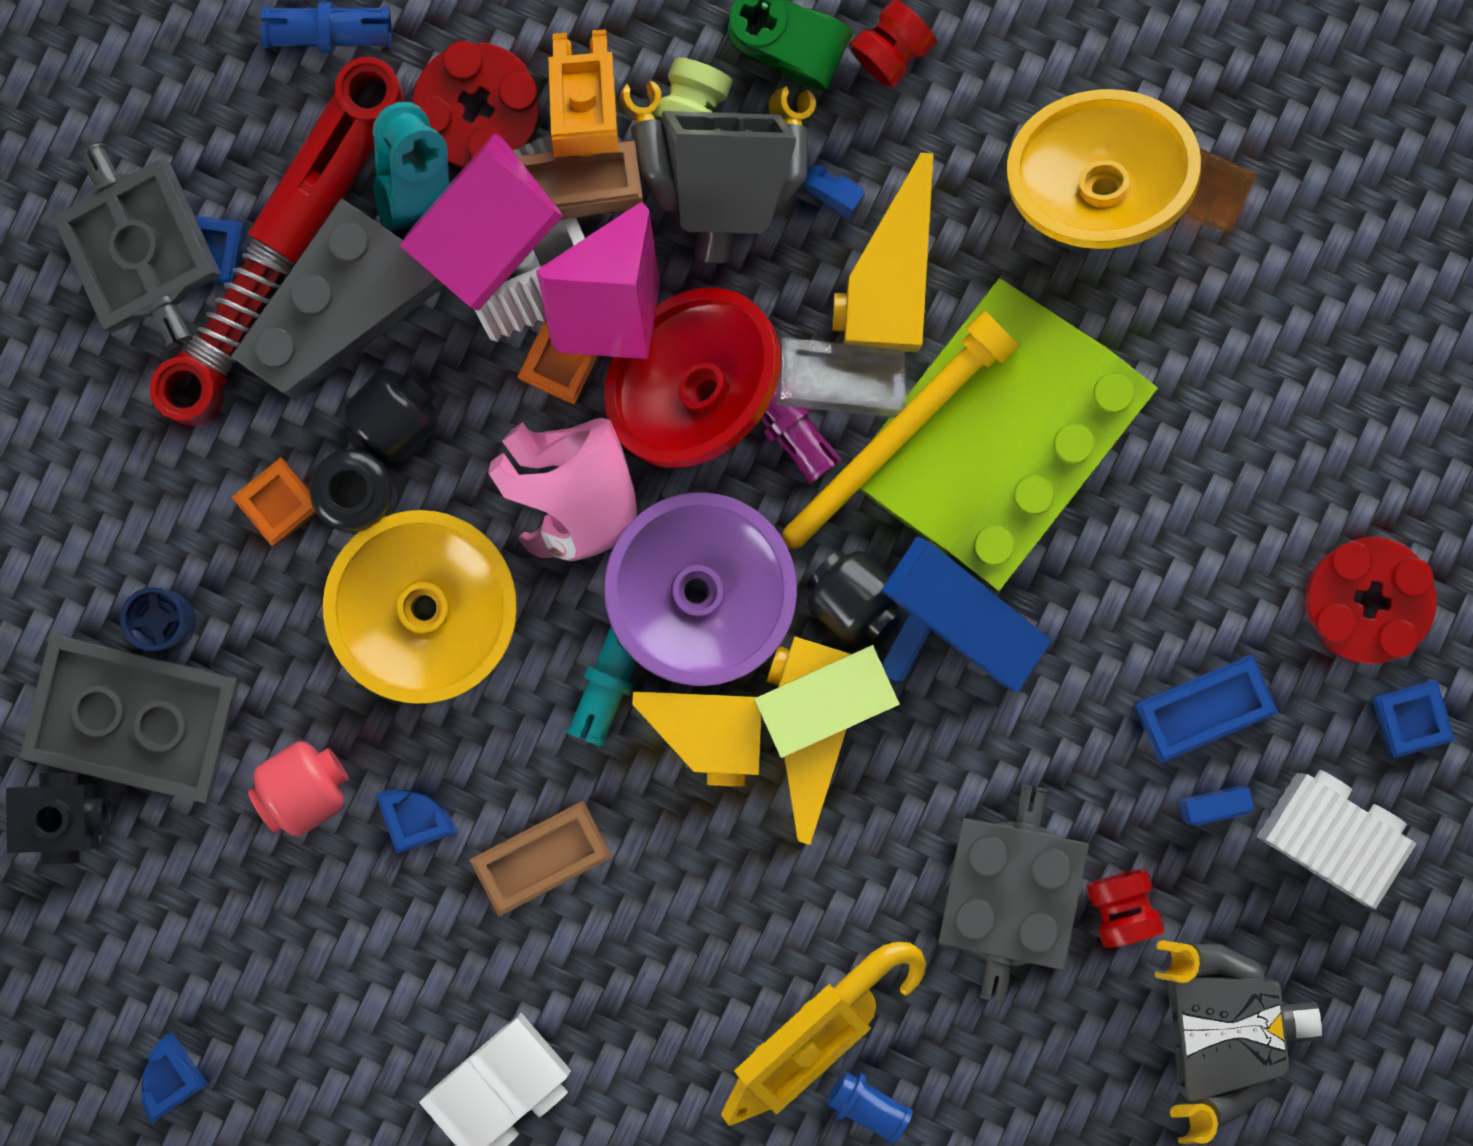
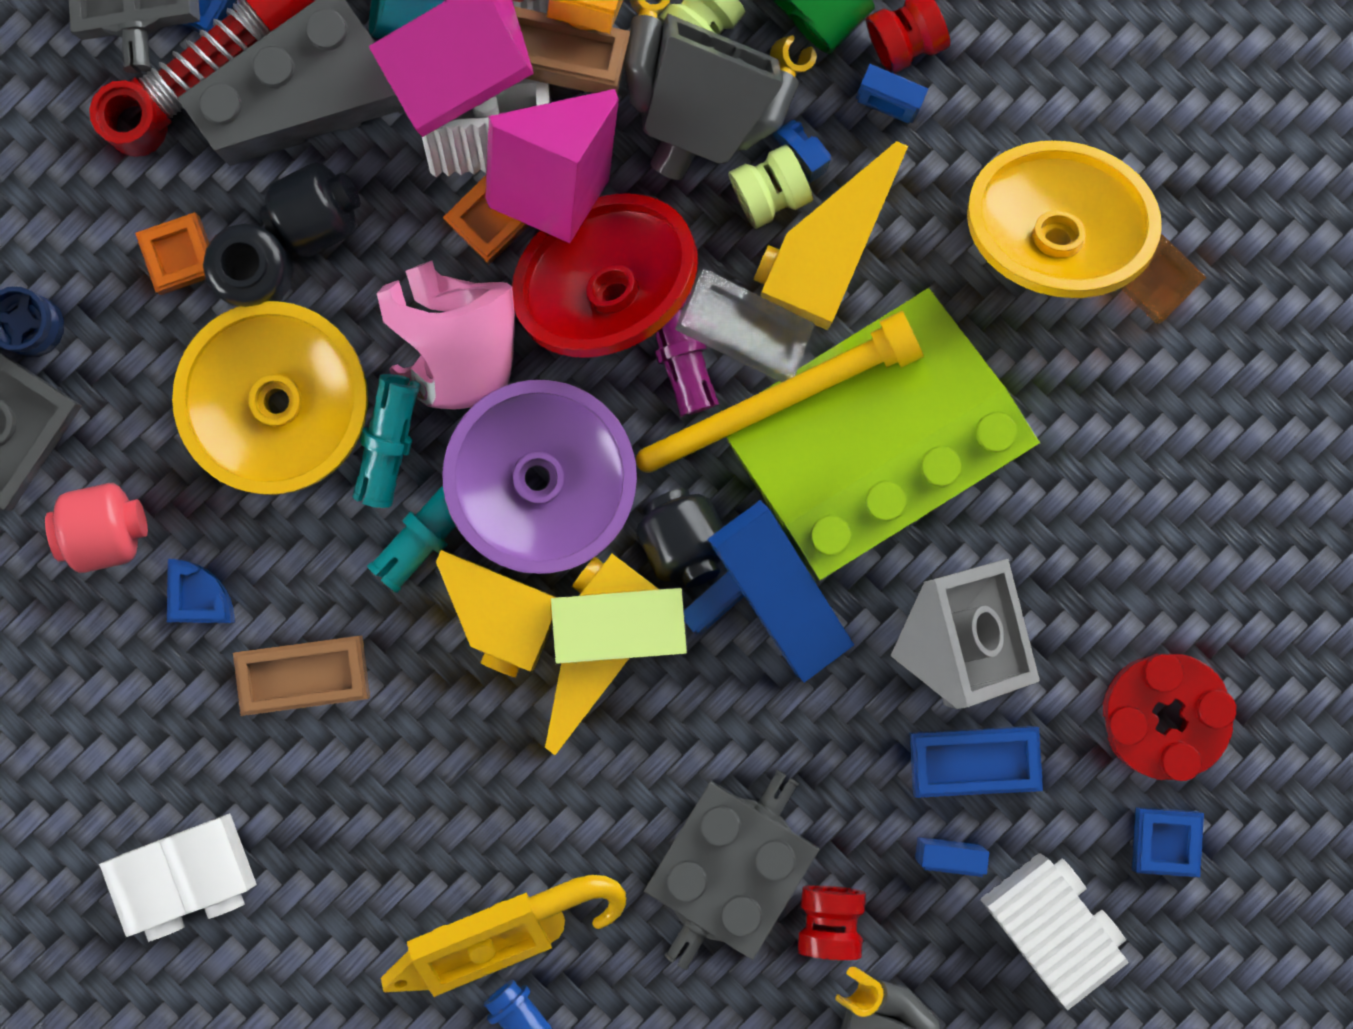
camera: 15 degrees right, 0 degrees up
(542, 607) = (386, 440): none -> teal pin
(804, 240) = (770, 186): none -> yellowish green wheel
(898, 108) = (891, 94): none -> blue tile
(1156, 593) = (968, 636): none -> light grey slope

